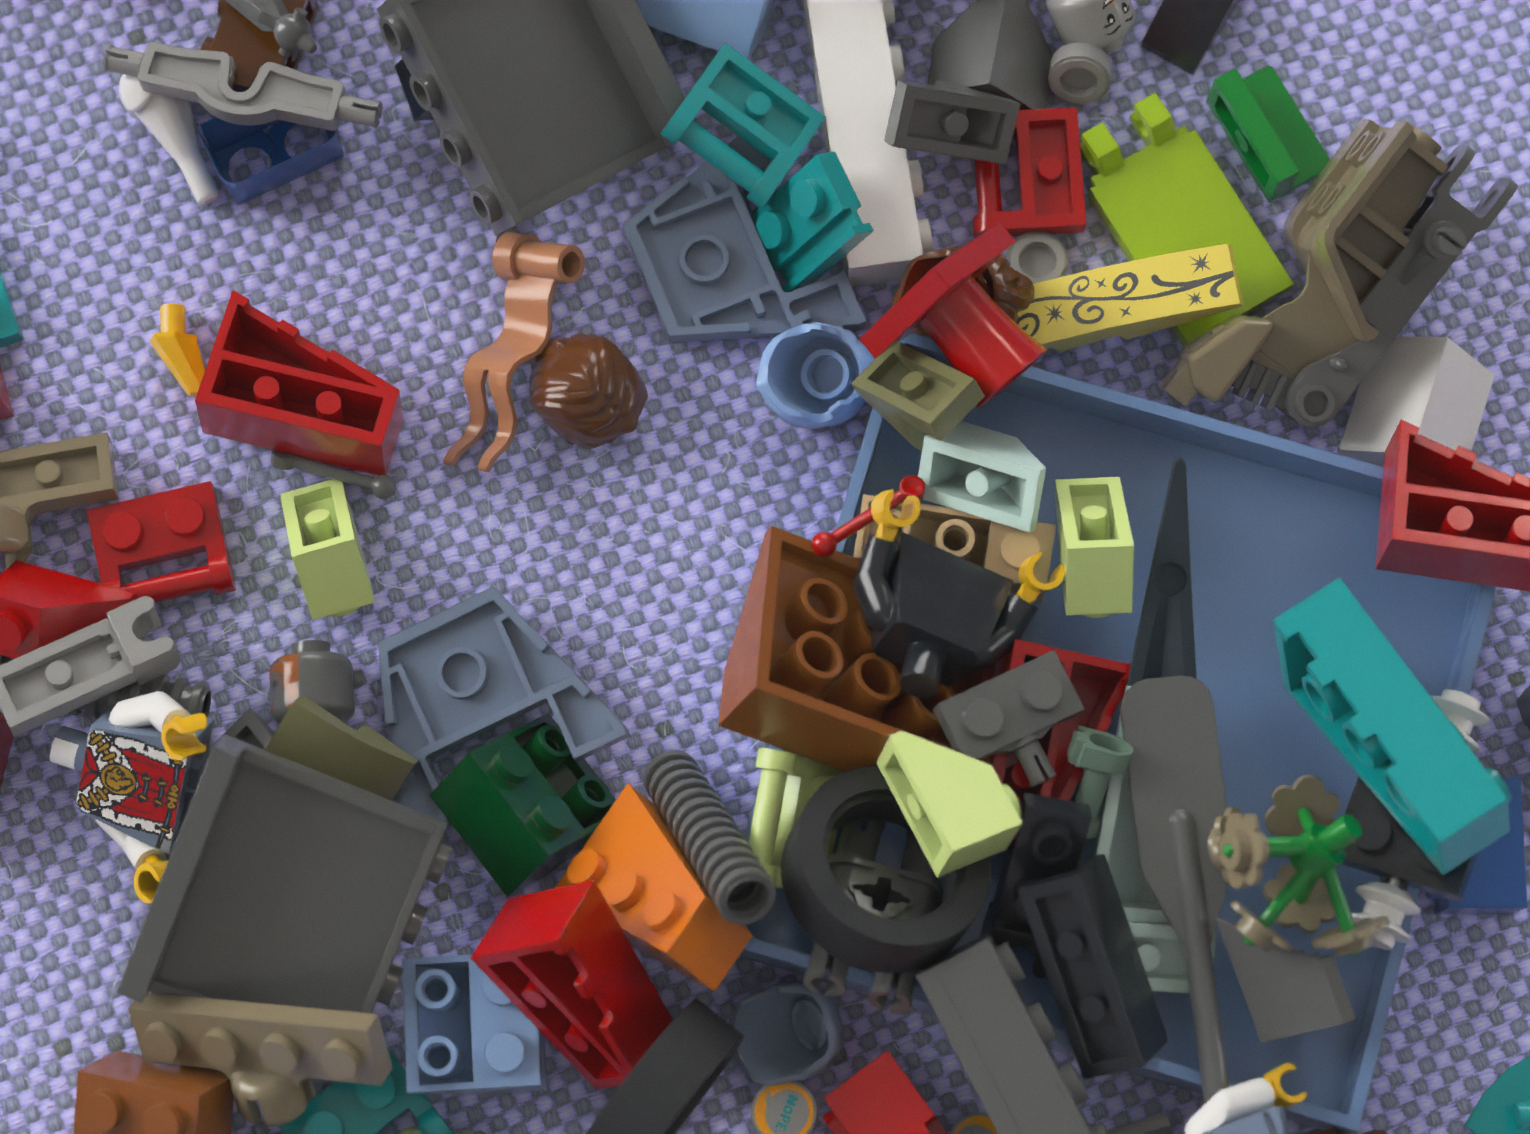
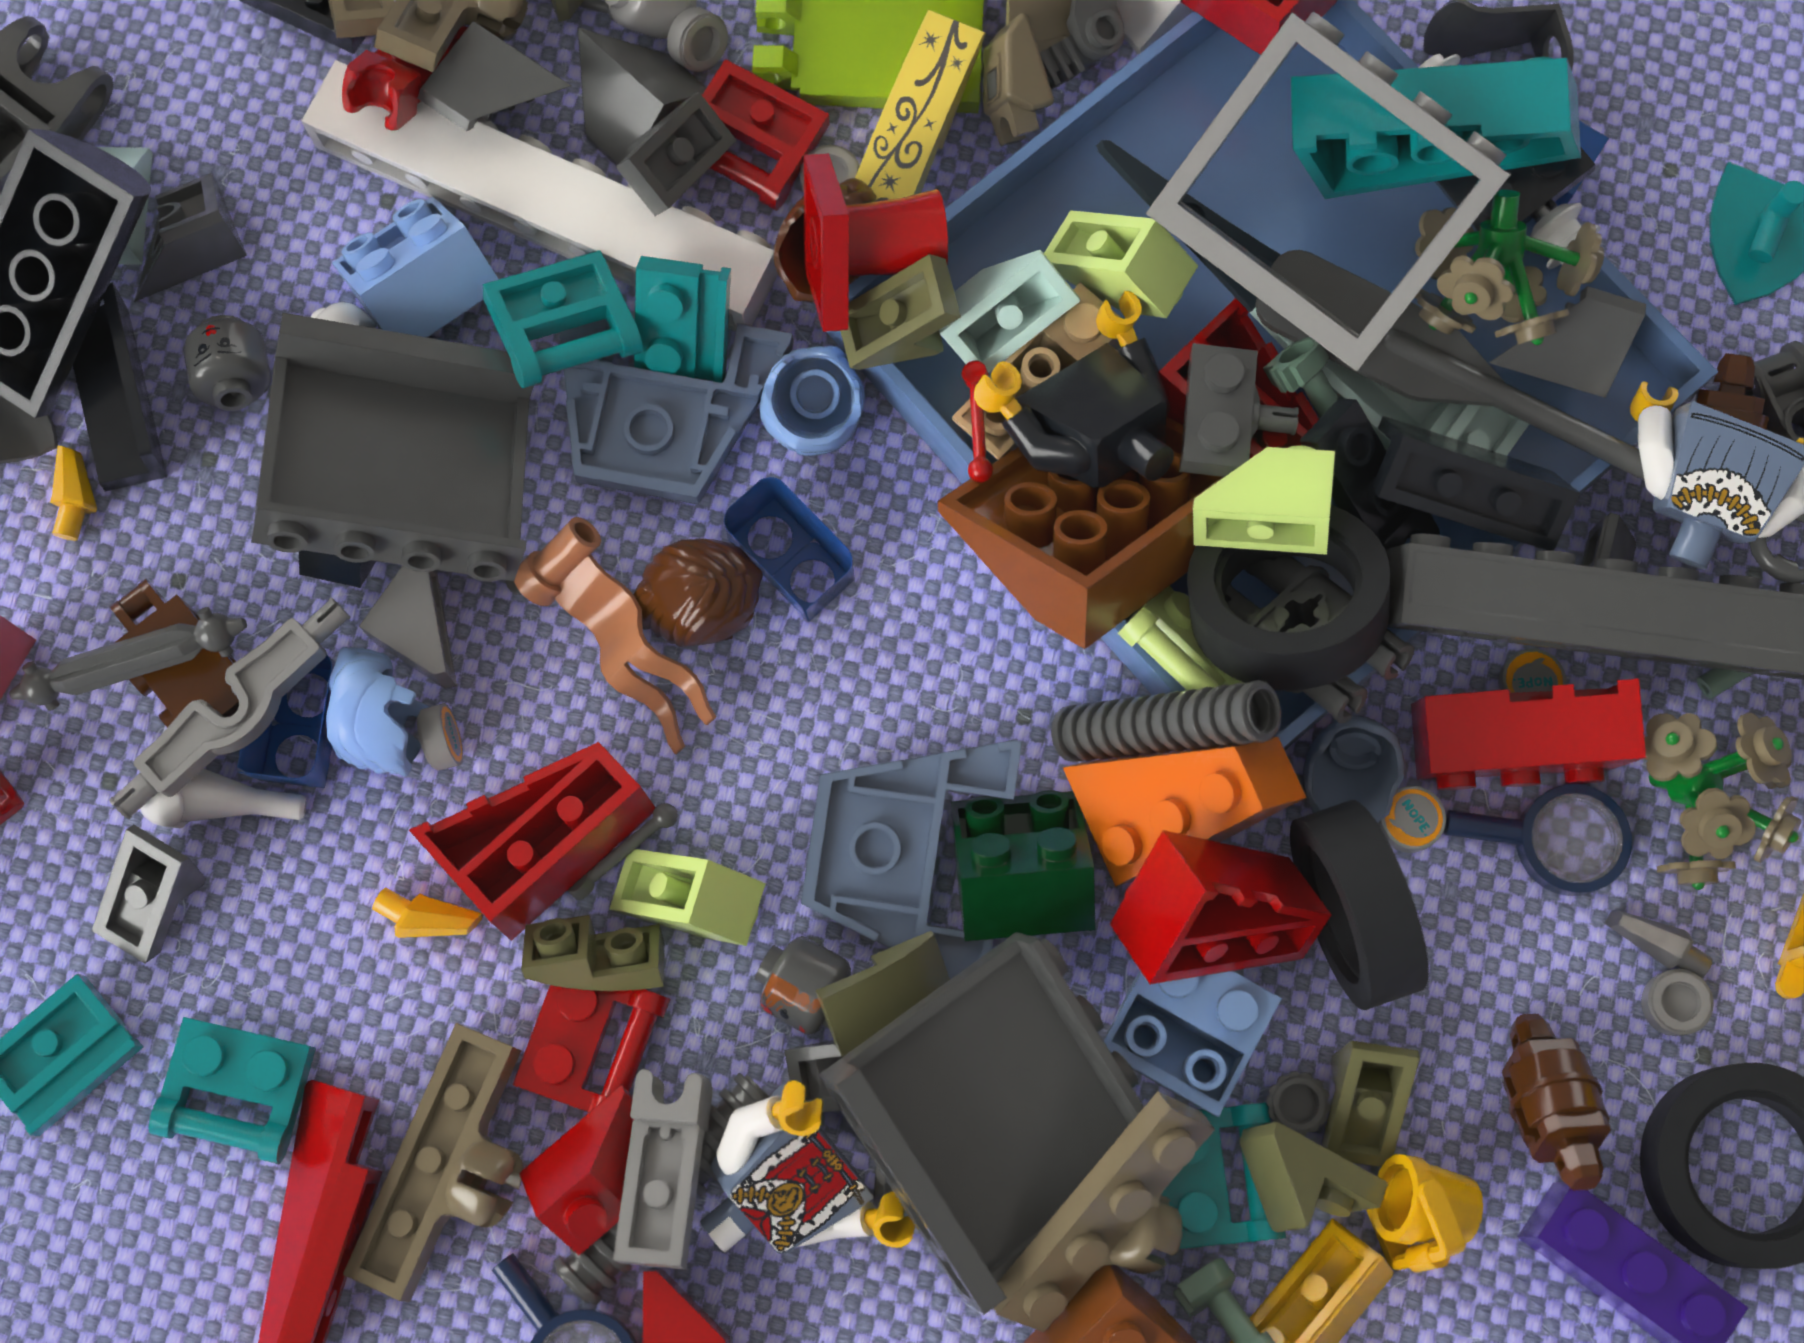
camera: 55 degrees left, 0 degrees up
(57, 124) = (144, 894): none -> dark grey slope
(220, 493) = (575, 957): none -> olive slope
(314, 198) = (370, 713): none -> light blue hair
(333, 266) = (440, 737): none -> light grey tile
(410, 186) = (413, 626): none -> light grey slope
(677, 385) = (775, 499): none -> blue piece
(1145, 671) = (1374, 80): none -> light grey window

